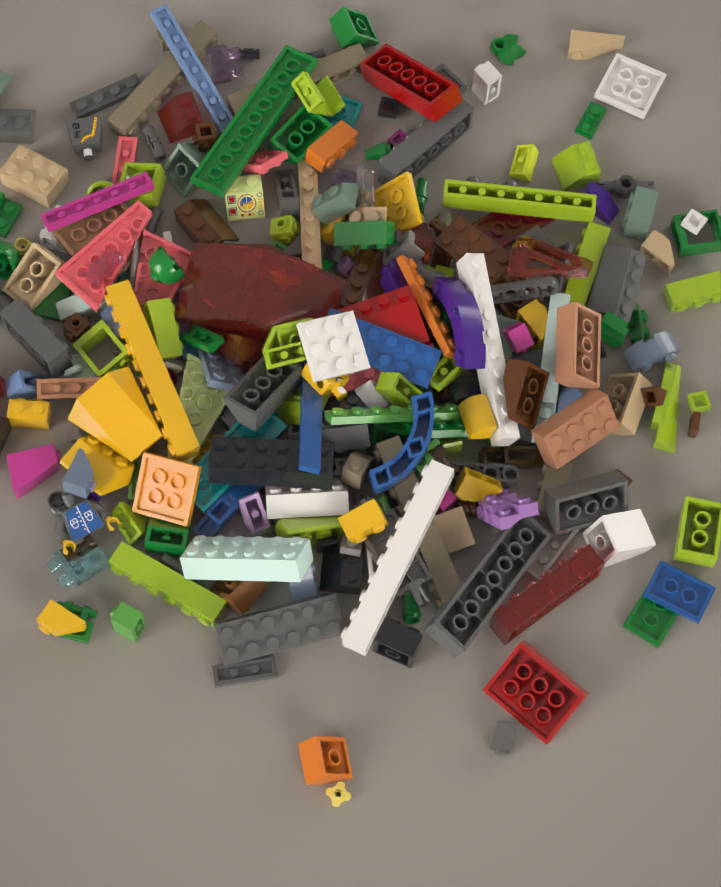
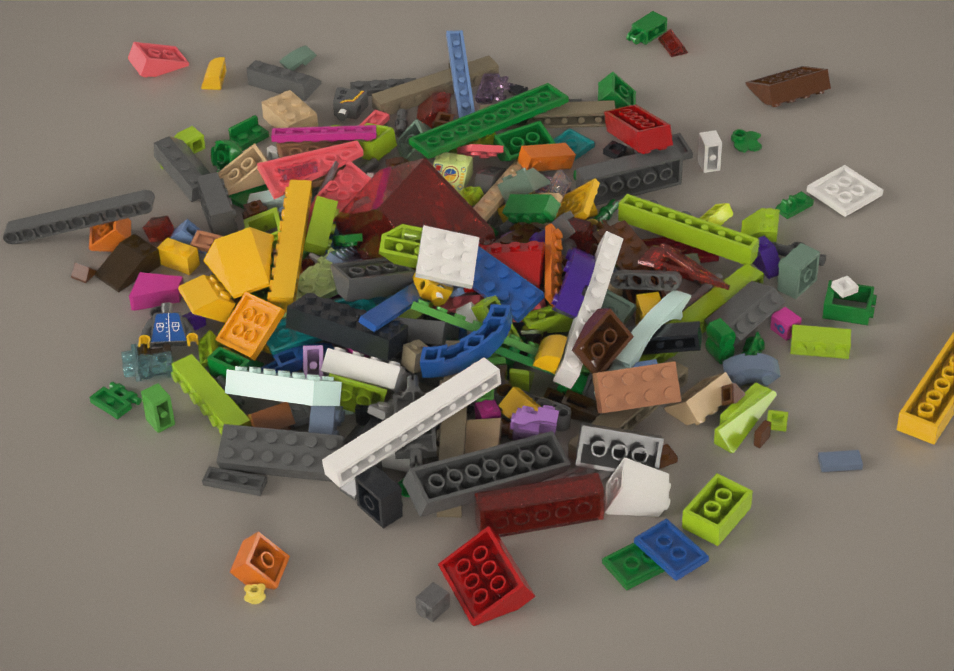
camera: 30 degrees right, 25 degrees down
(59, 620) = (102, 388): yellow slope -> none
(80, 476) = (182, 291): sand blue slope -> none
(164, 267) = (346, 182): green cylinder -> none
(318, 98) = (560, 128): lime panel -> none
(363, 521) = (397, 385): yellow brick -> none
(518, 337) = (626, 311): dark pink brick -> none
(578, 347) = (670, 323): nougat slope -> none
(587, 45) = (822, 154): tan slope -> none
(654, 280) = (782, 322): none -> dark pink brick
(658, 251) = (801, 302): tan slope -> none

